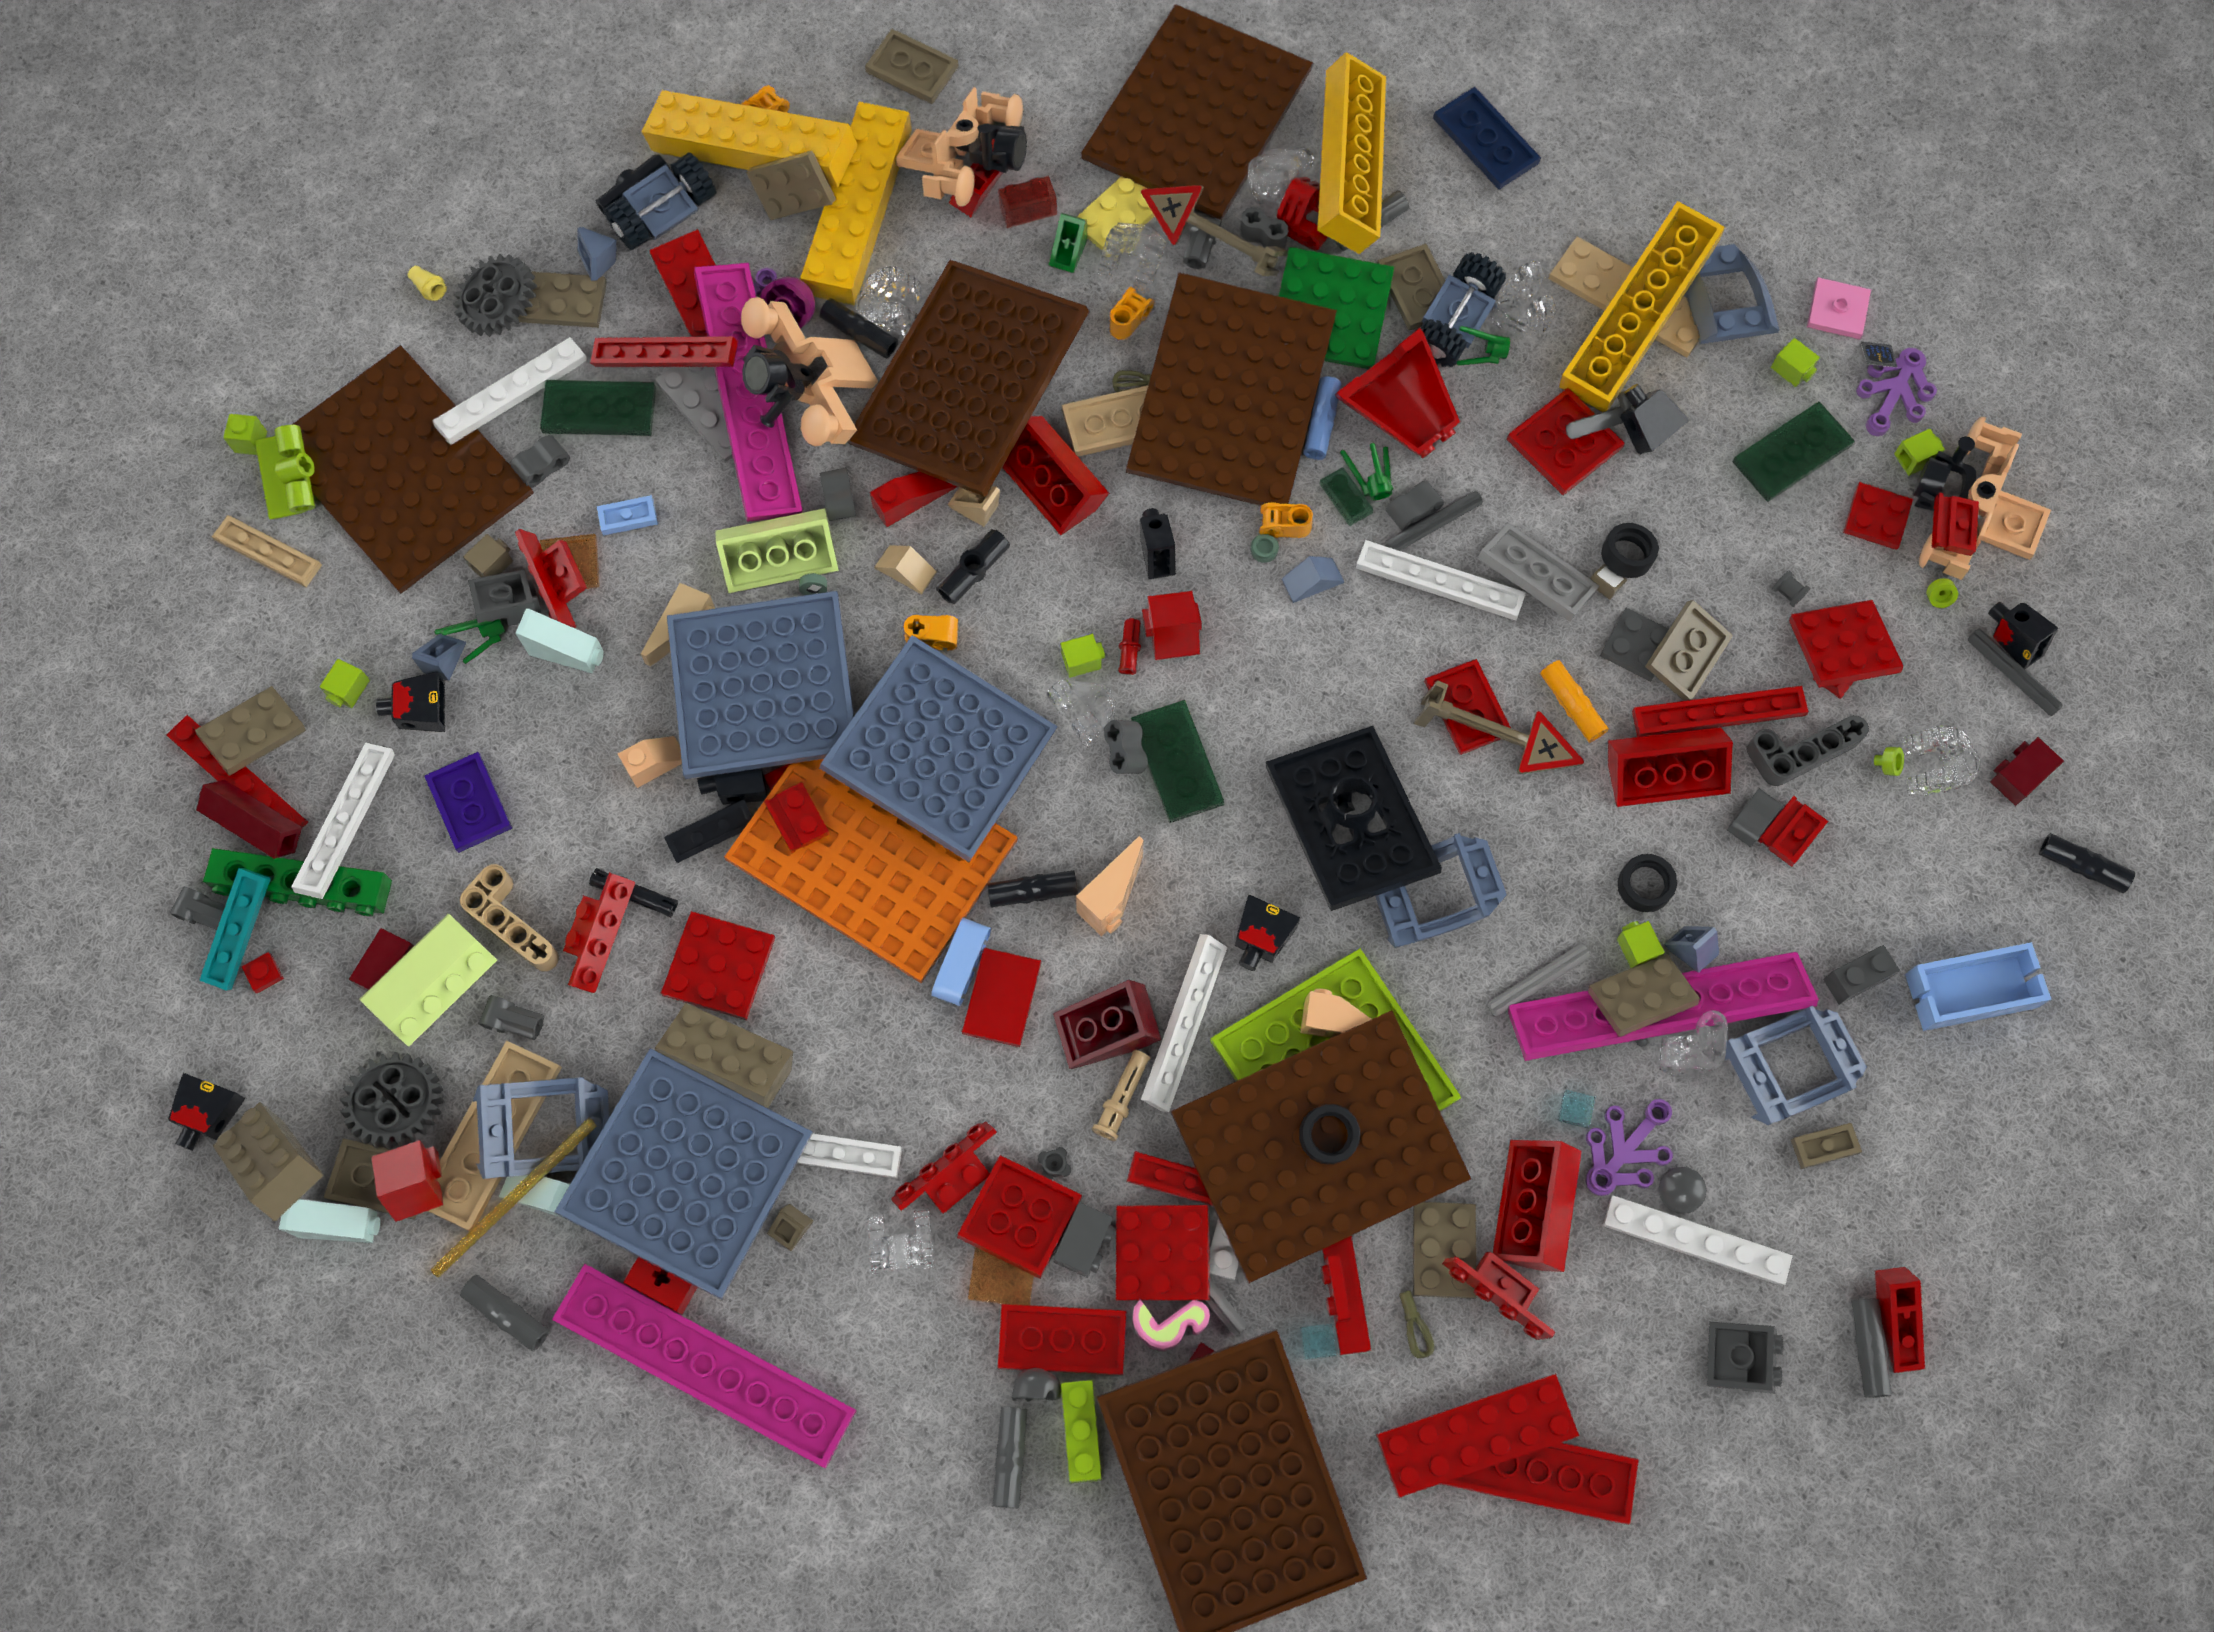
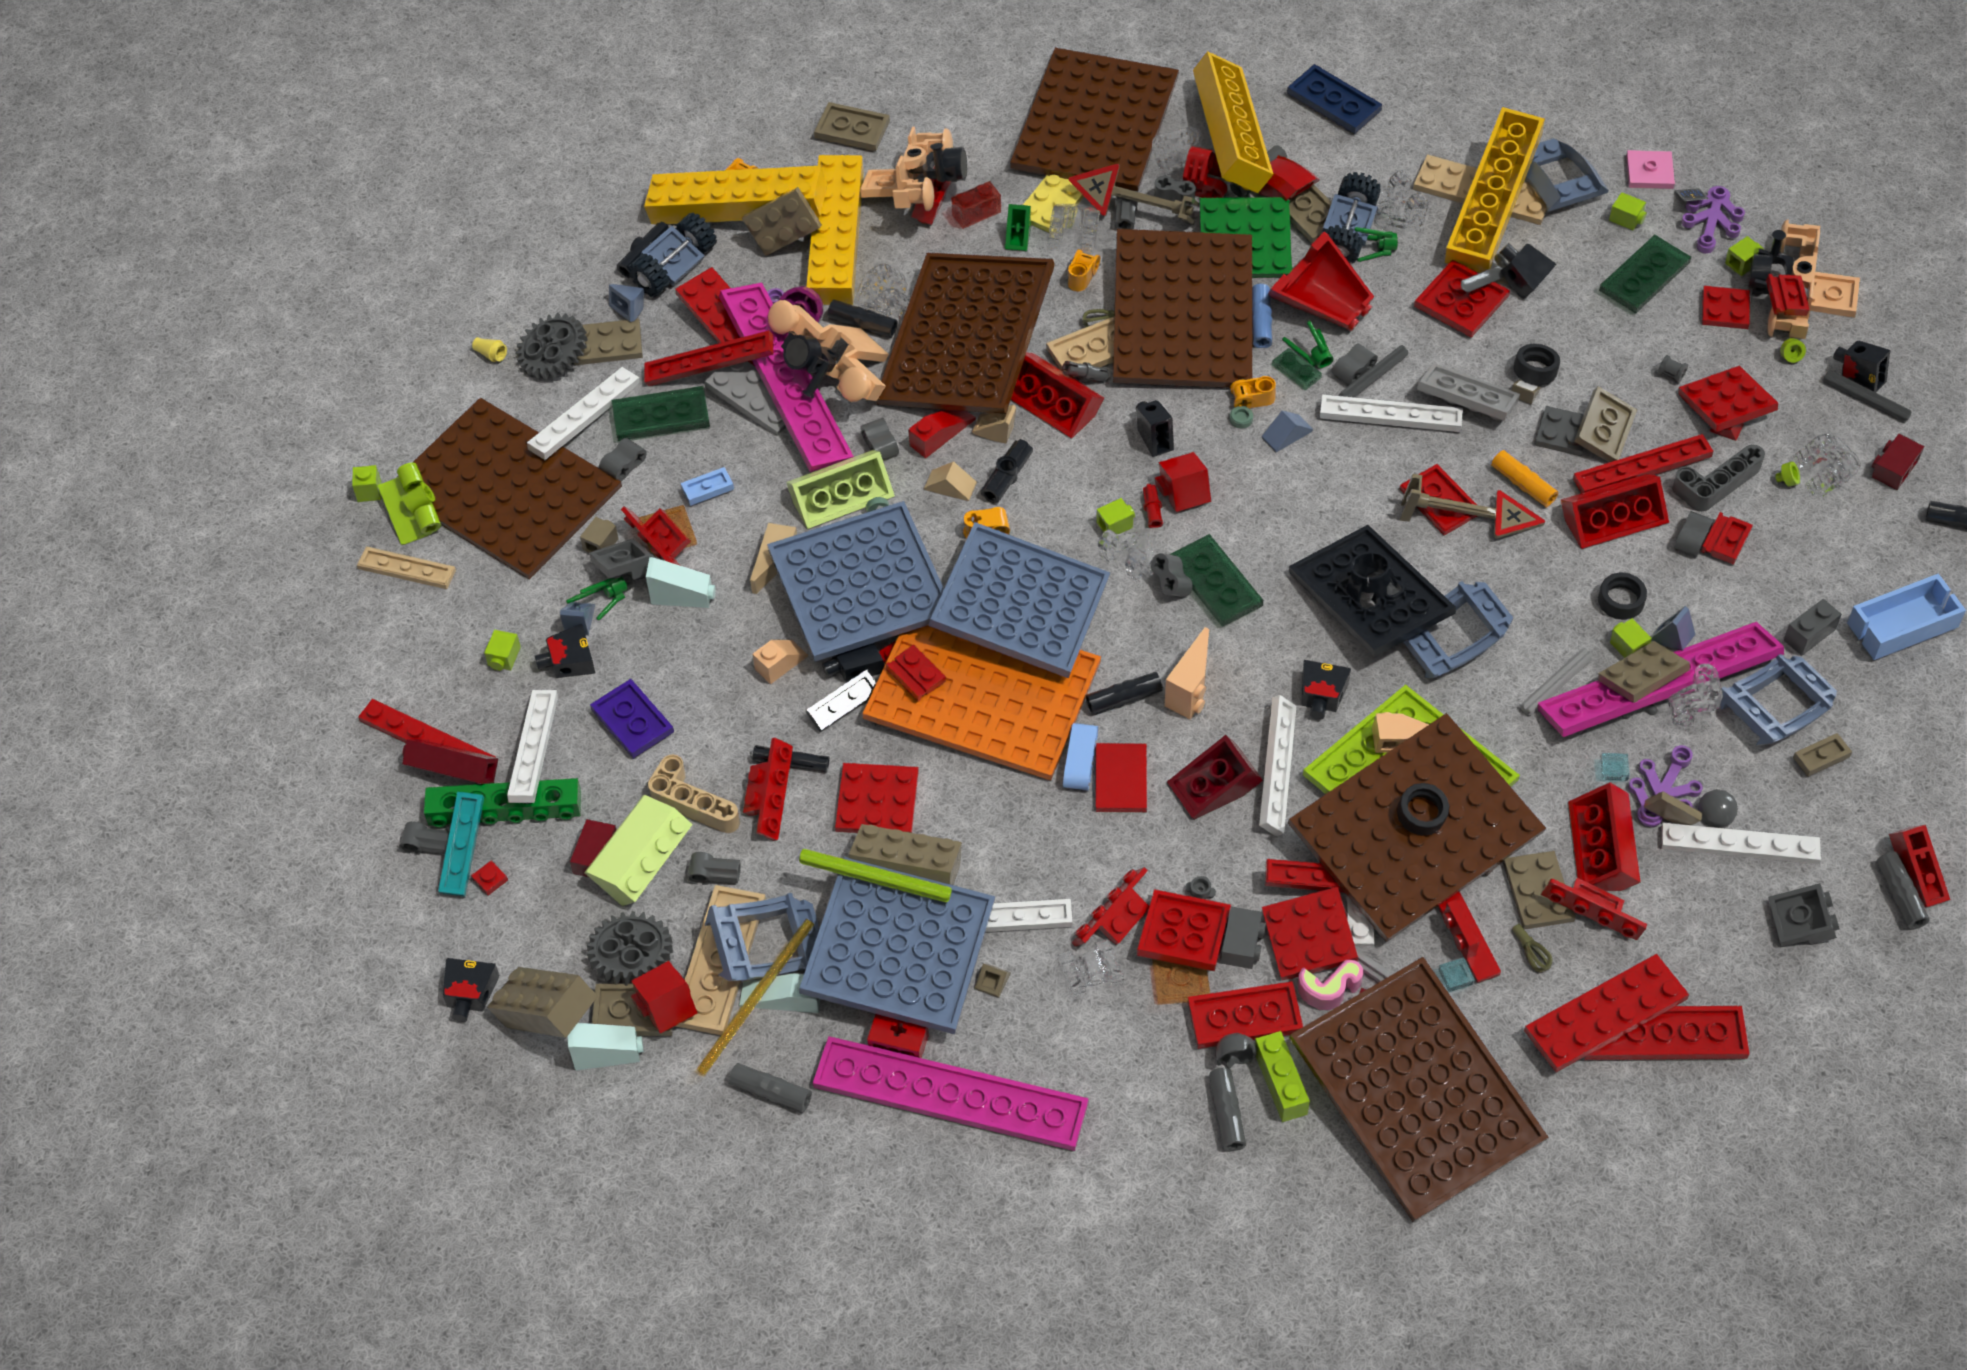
camera: 10 degrees left, 15 degrees down
(250, 730) = (431, 699): dark tan plate -> none
(677, 1082) = (875, 875): none -> lime axle
(1095, 453) = (1085, 371): none -> dark grey pin
(1112, 1107) = (1240, 837): tan pin -> none
(1400, 240) = (1287, 179): none -> red slope
(1627, 1187) = (1672, 809): none -> dark tan tile

